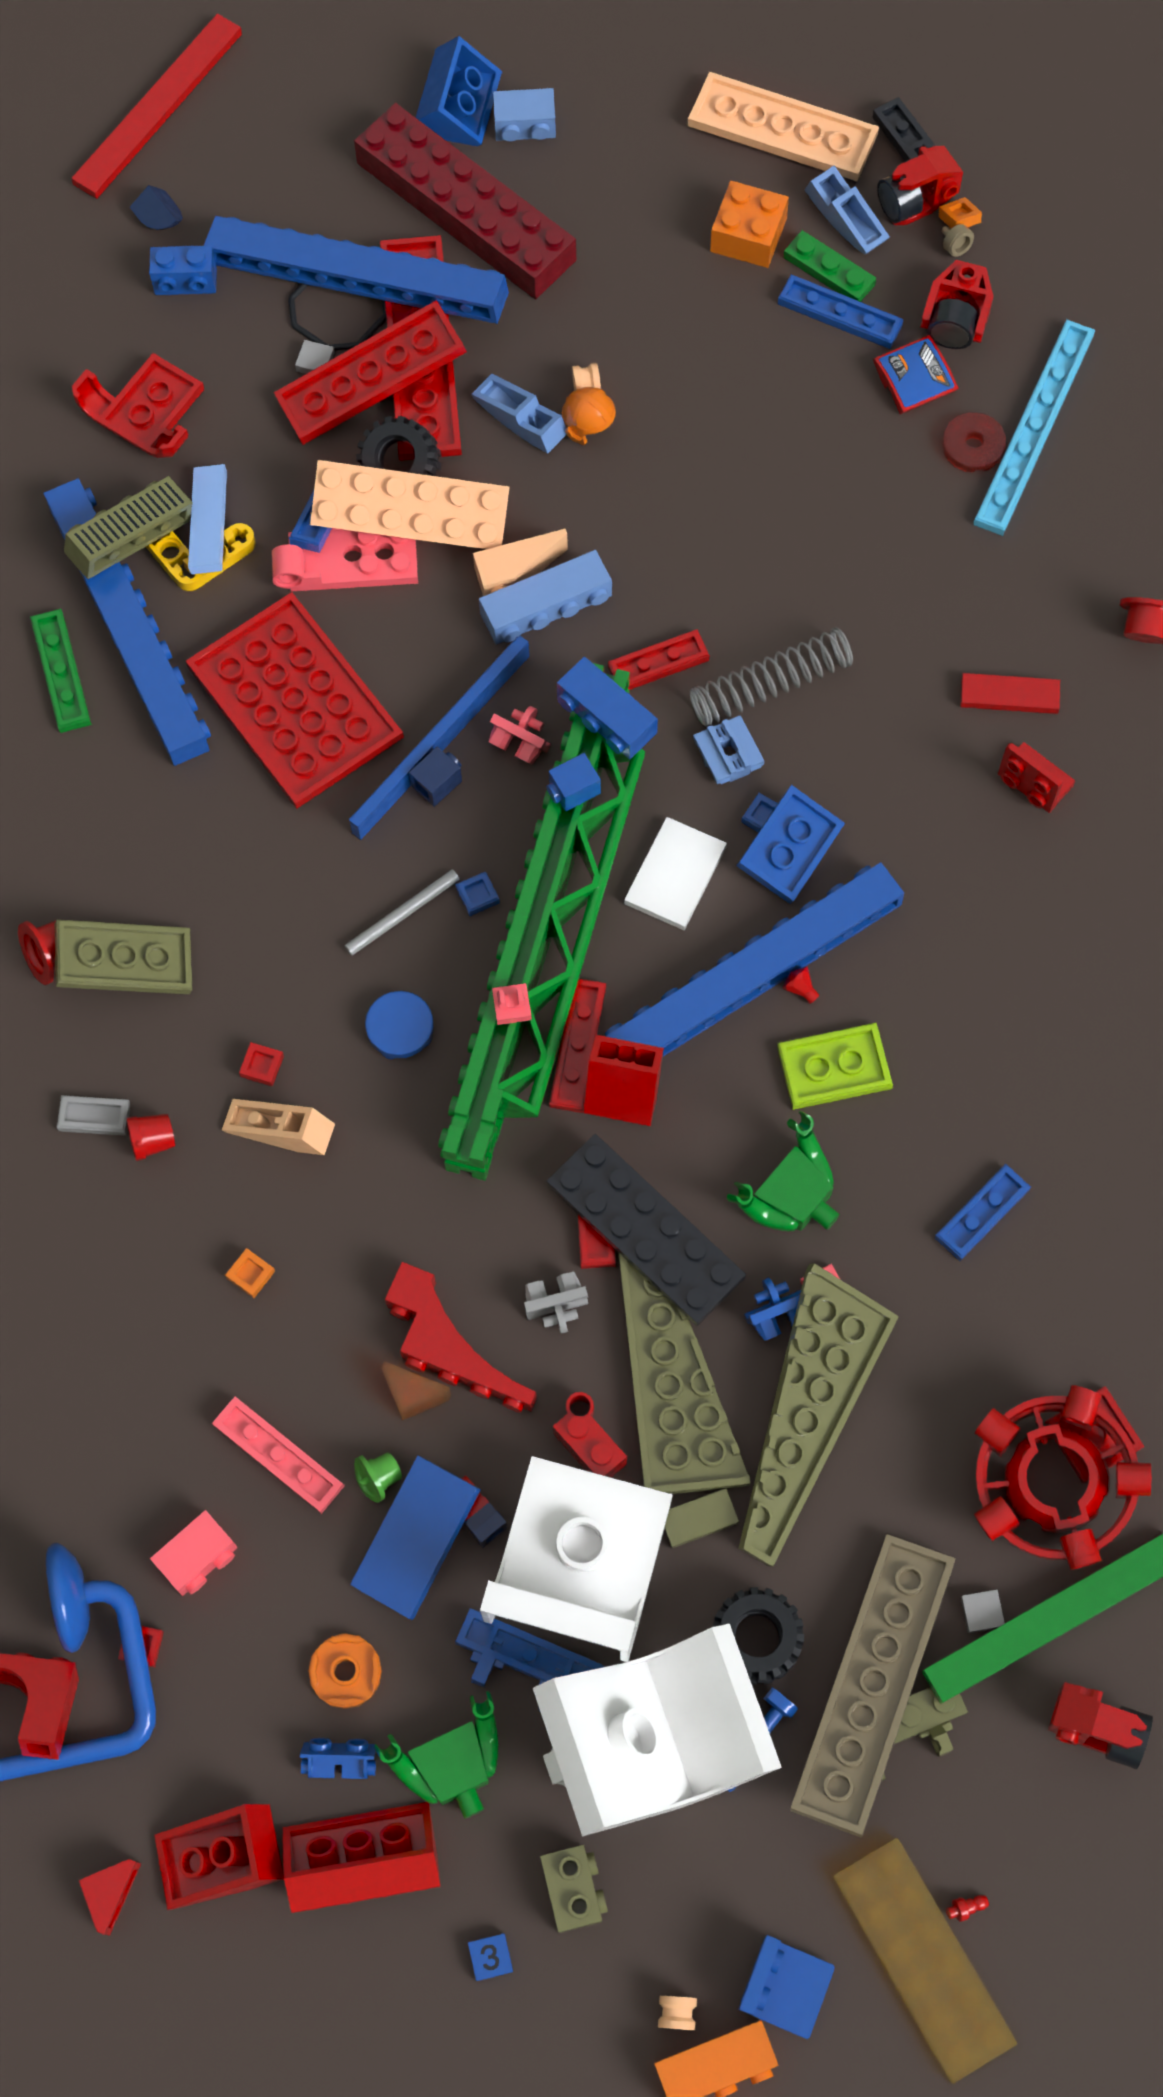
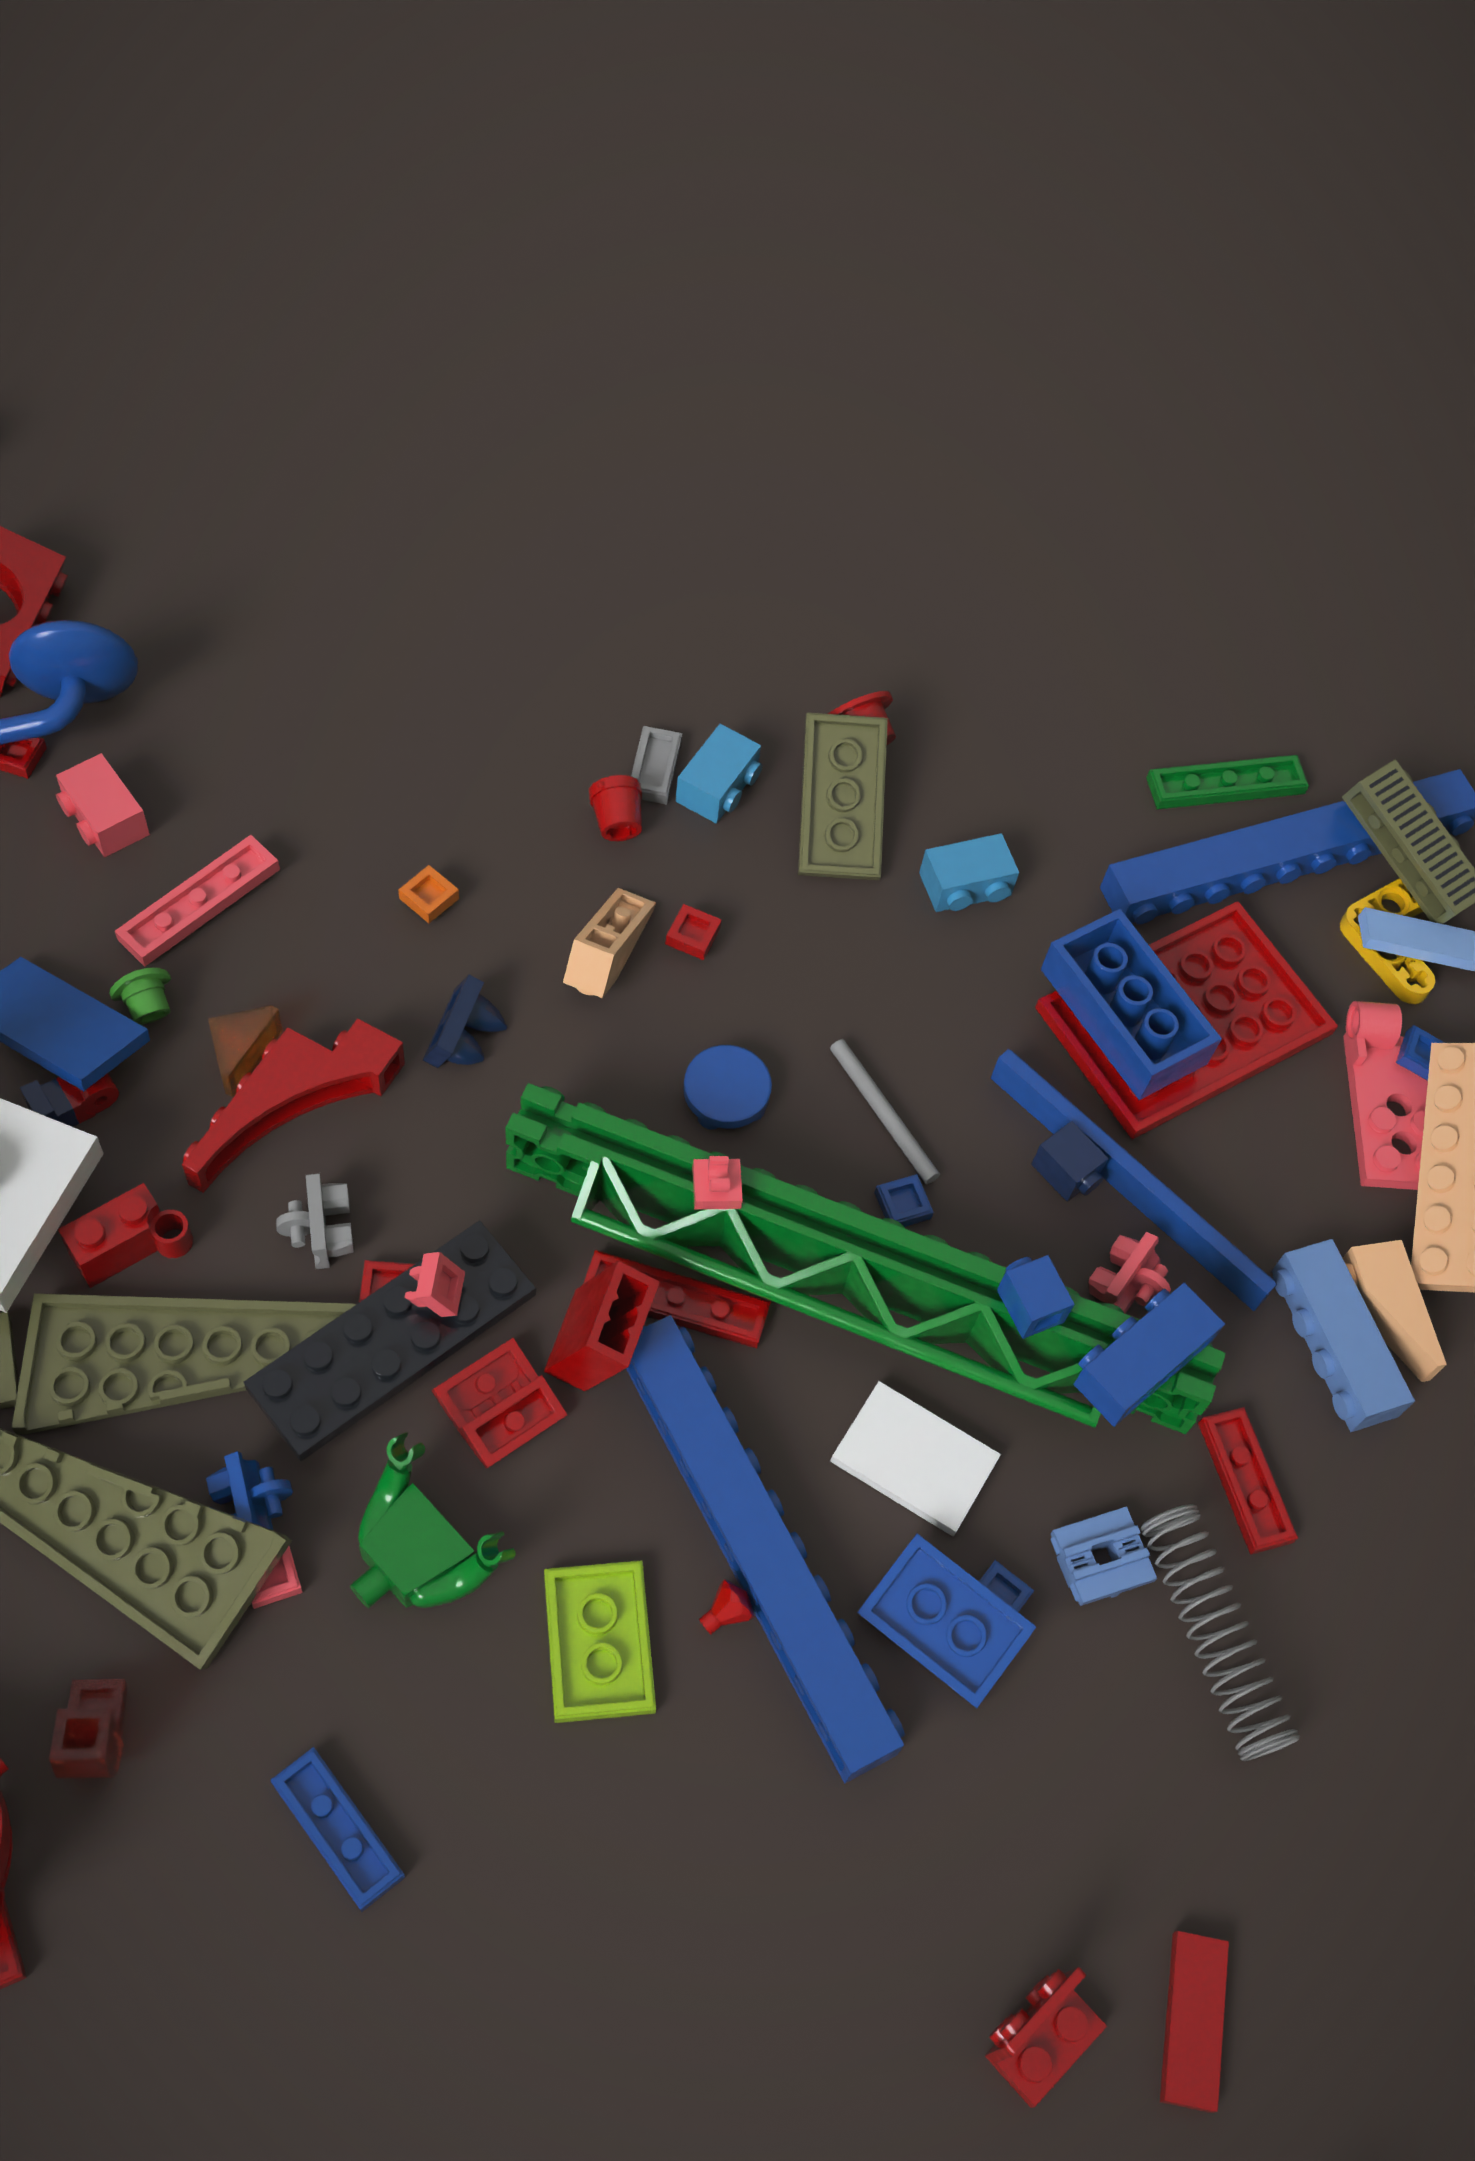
camera: 85 degrees right, 10 degrees down
(103, 1059) = (719, 773): none -> dark azure brick
(181, 861) = (968, 873): none -> dark azure brick
(304, 732) = (1130, 1004): none -> blue brick
(360, 1229) = (464, 1009): none -> dark blue tile
(612, 1191) = (438, 1285): none -> coral tile
(676, 1154) = (499, 1403): none -> red slope
(958, 1373) = (89, 1730): none -> clear red brick

